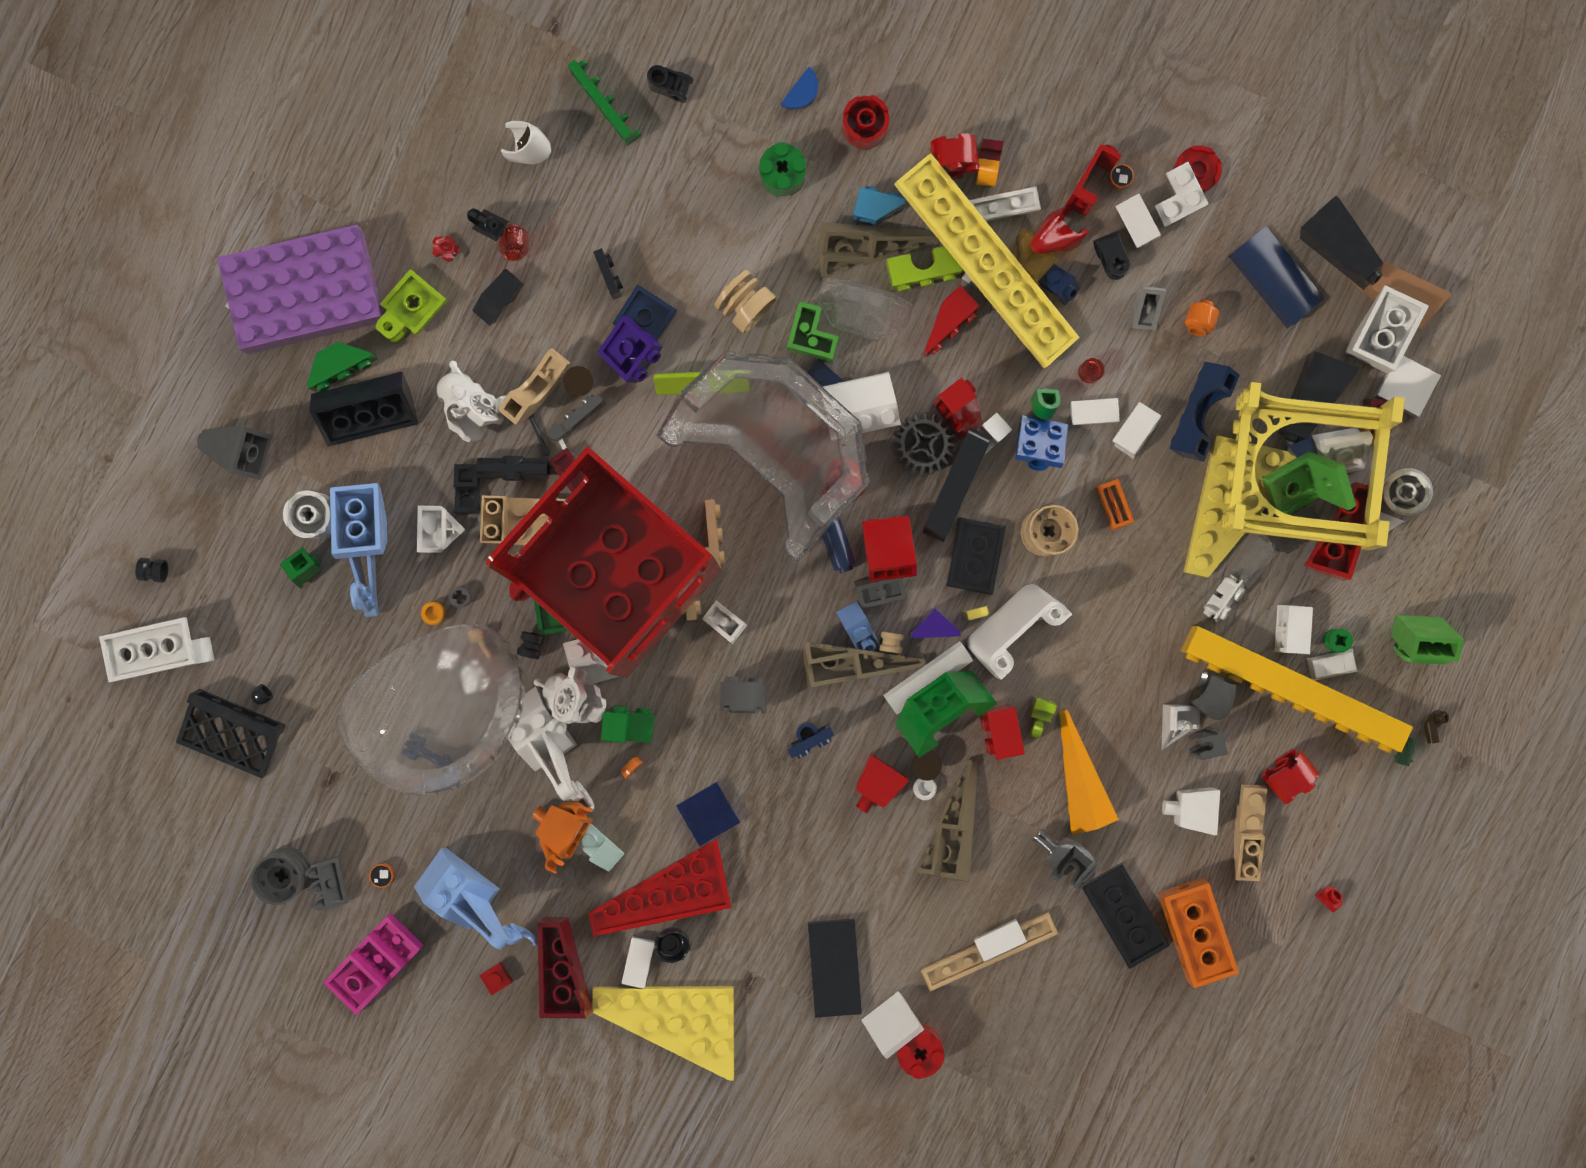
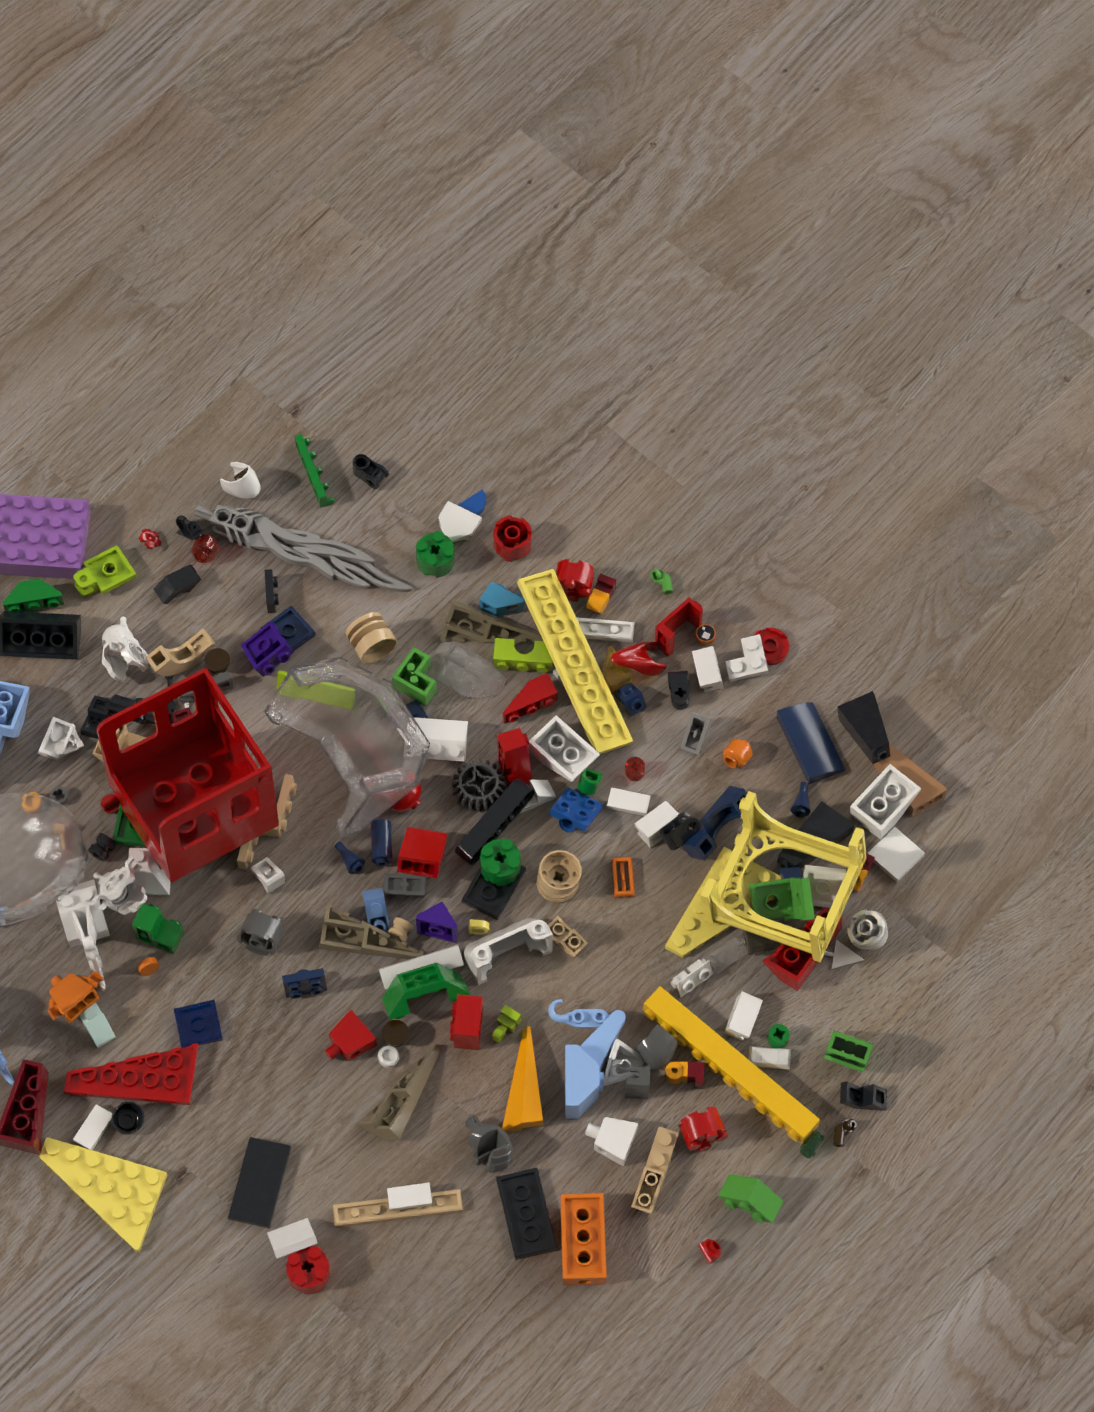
camera: 15 degrees right, 25 degrees down
(638, 205) = (308, 548): none -> light grey piece
(794, 119) = (458, 522): none -> white slope
(812, 577) = (352, 861): none -> dark blue cone
(980, 547) = (500, 851): none -> green brick
(1008, 376) = (562, 749): none -> white slope
(1054, 121) = (663, 579): none -> bright green arm
(1073, 594) = (566, 938): none -> tan slope
(1142, 744) = (585, 1062): none -> light blue slope
(1166, 435) = (678, 830): none -> black piece
(1249, 711) = (685, 1072): none -> leg
(1288, 359) = (801, 804): none -> dark blue cone
(1365, 836) = (750, 1196): none -> bright green brick
(1447, 680) = (866, 1097): none -> black slope

